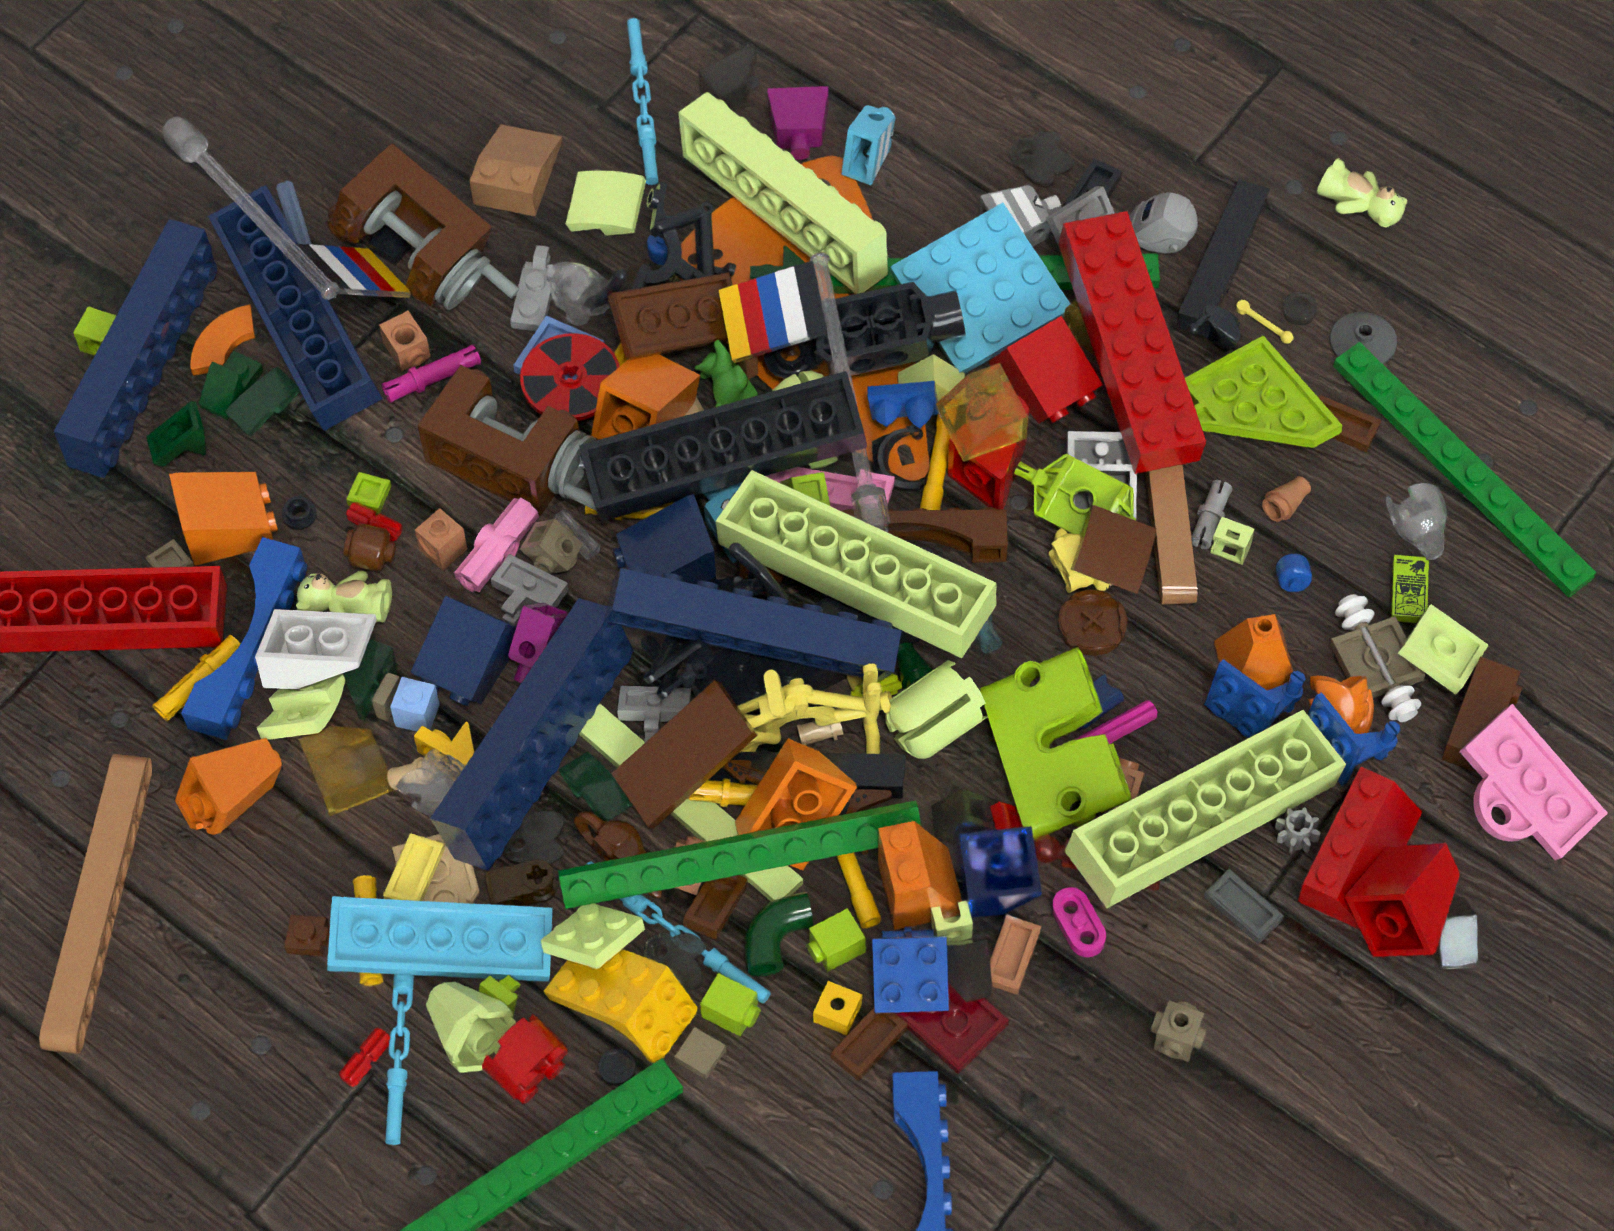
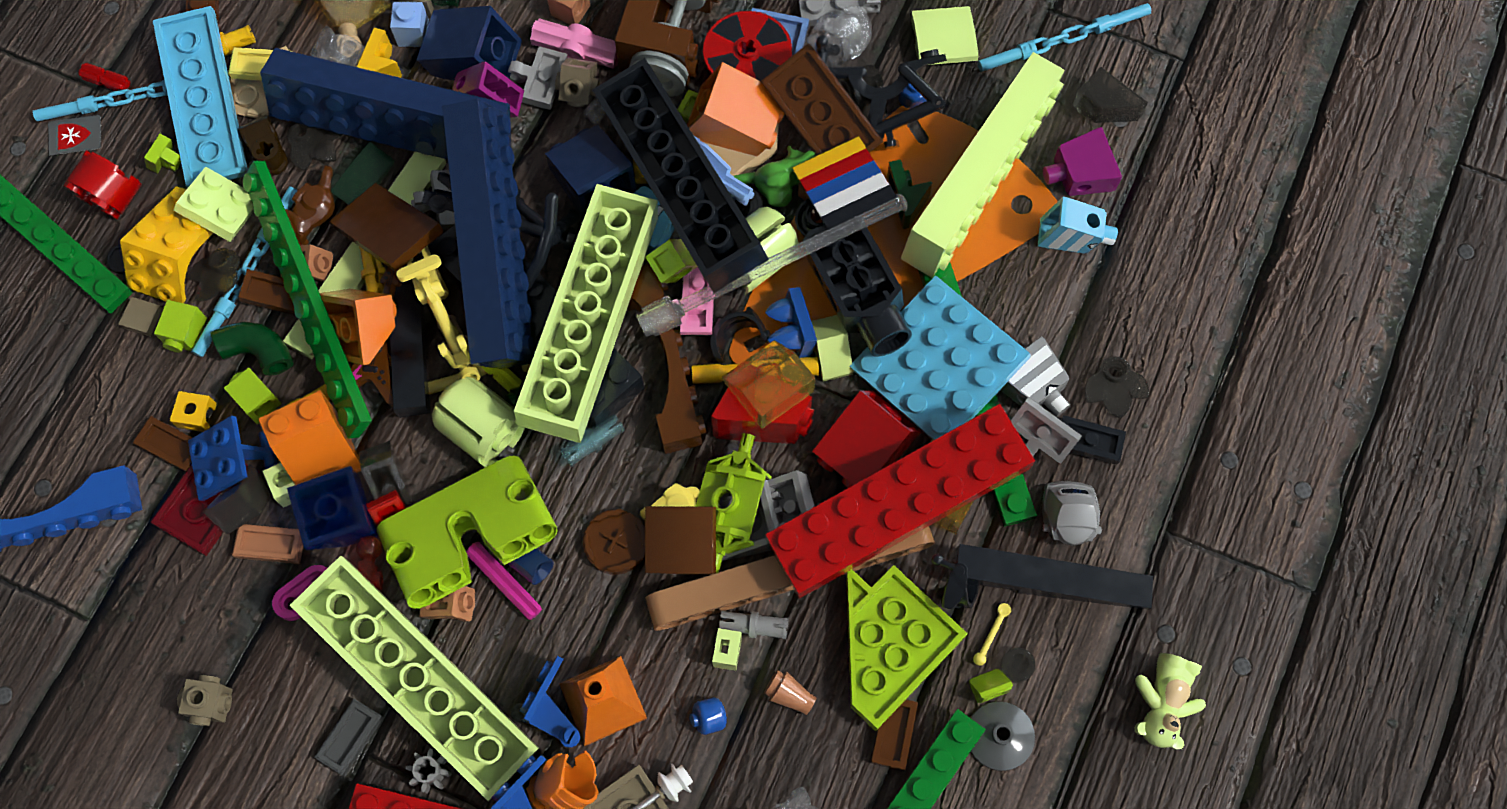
camera: 75 degrees right, 10 degrees up
(429, 1106) = (74, 135): none -> dark grey sticker
(468, 1024) = (129, 135): yellowish green cone -> none
(1316, 332) = (990, 685): none -> lime slope

